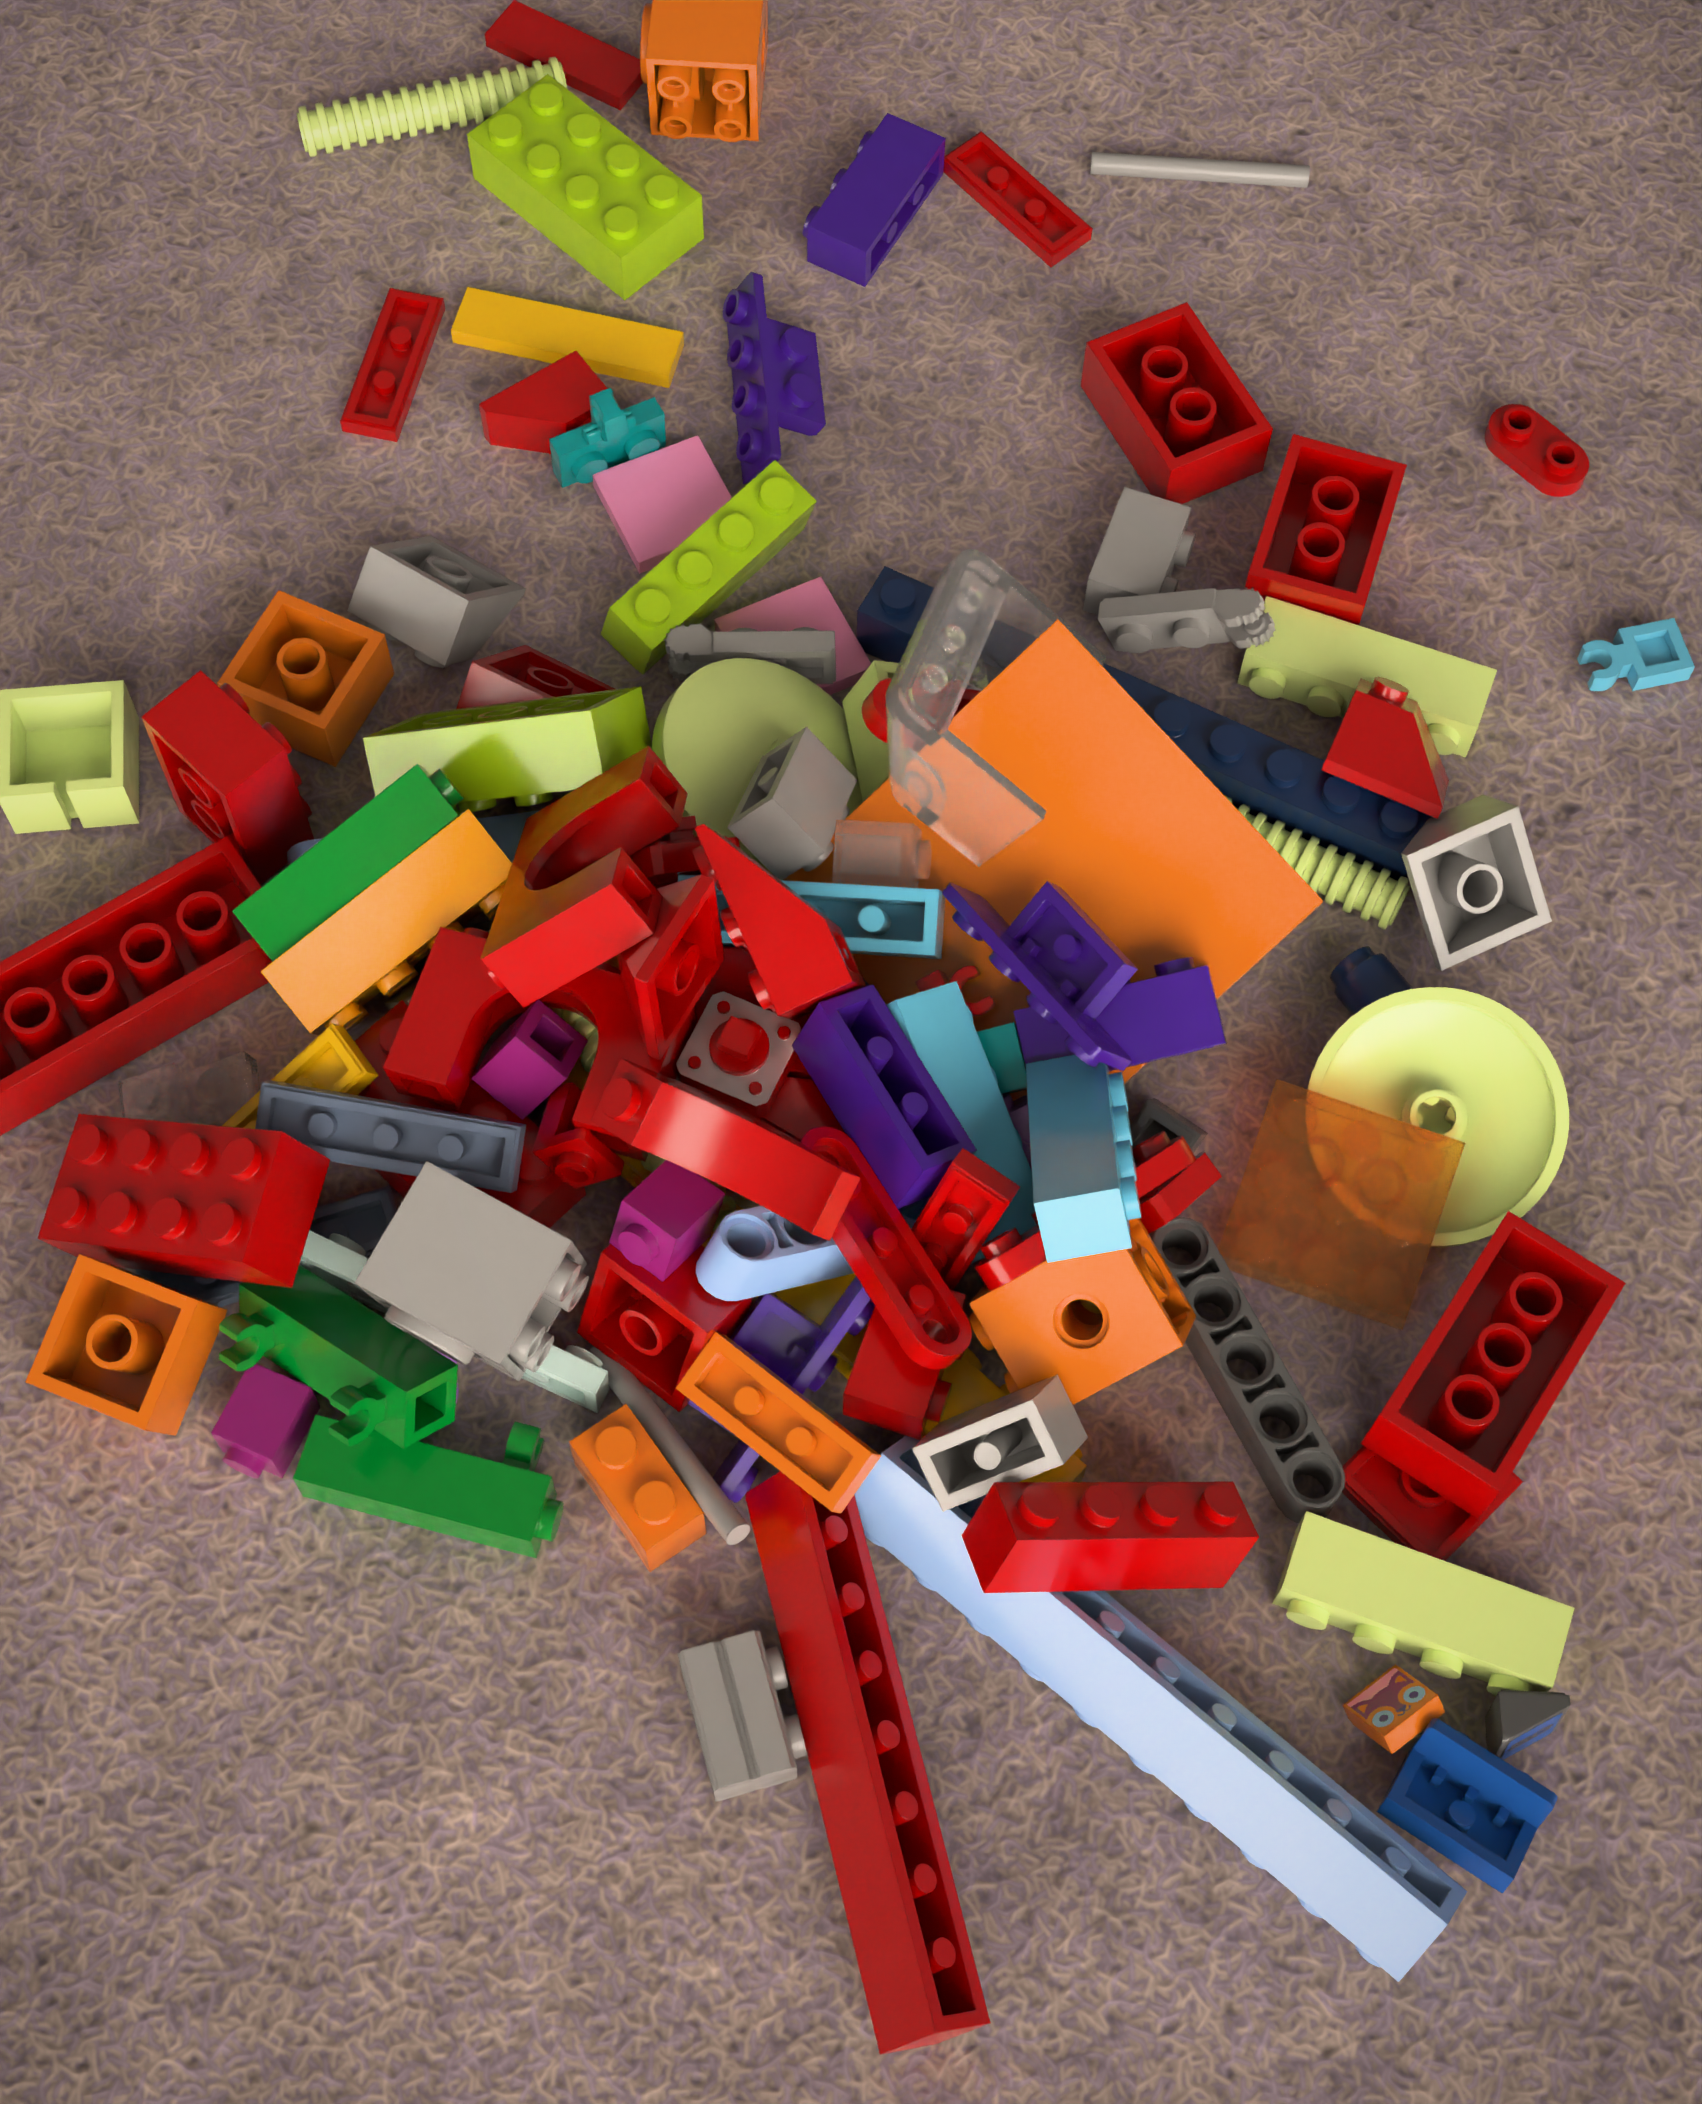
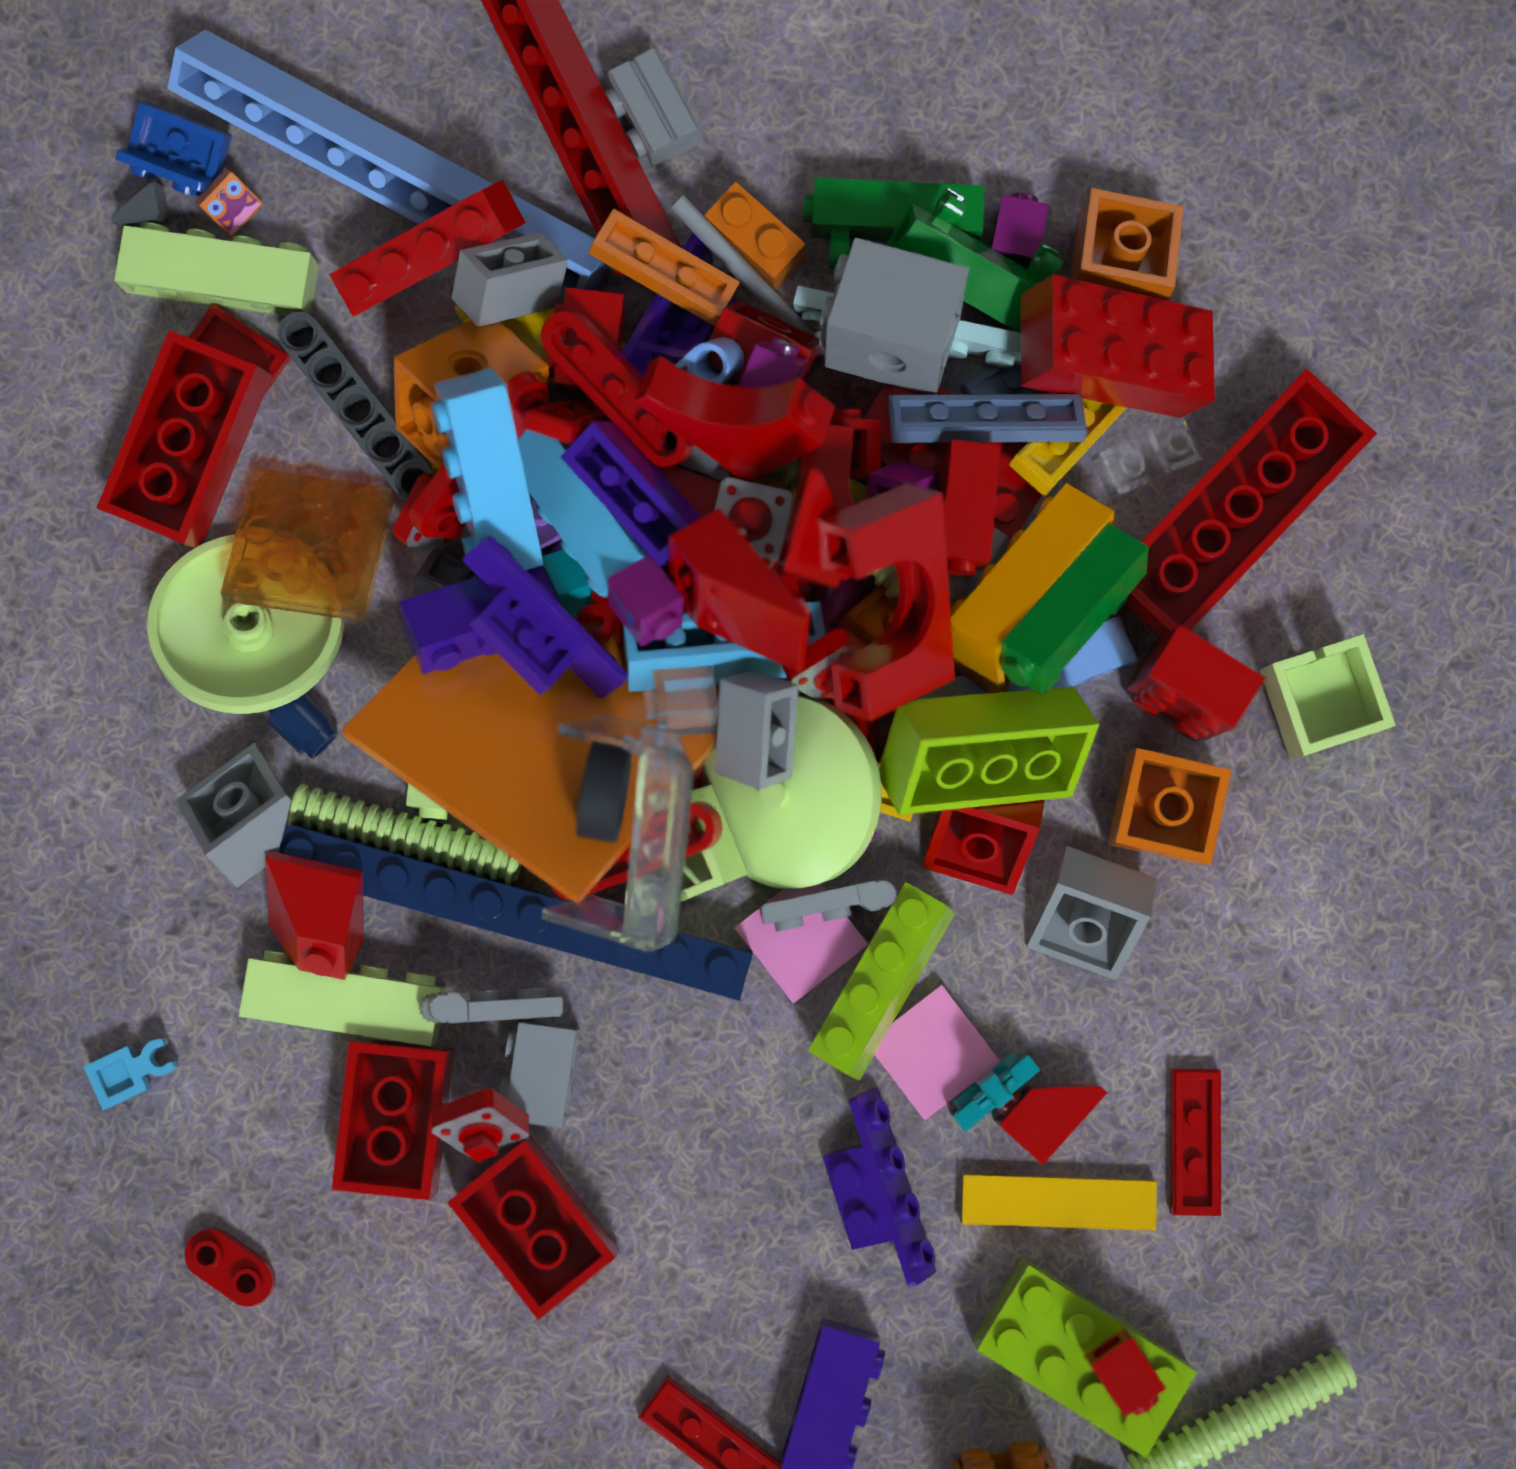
camera: 170 degrees right, 20 degrees up
(547, 126) = (1125, 1374): none -> red brick
(899, 951) = (645, 601): none -> magenta brick
(1004, 713) = (603, 792): none -> black tyre
(1220, 484) = (480, 1124): none -> red piece

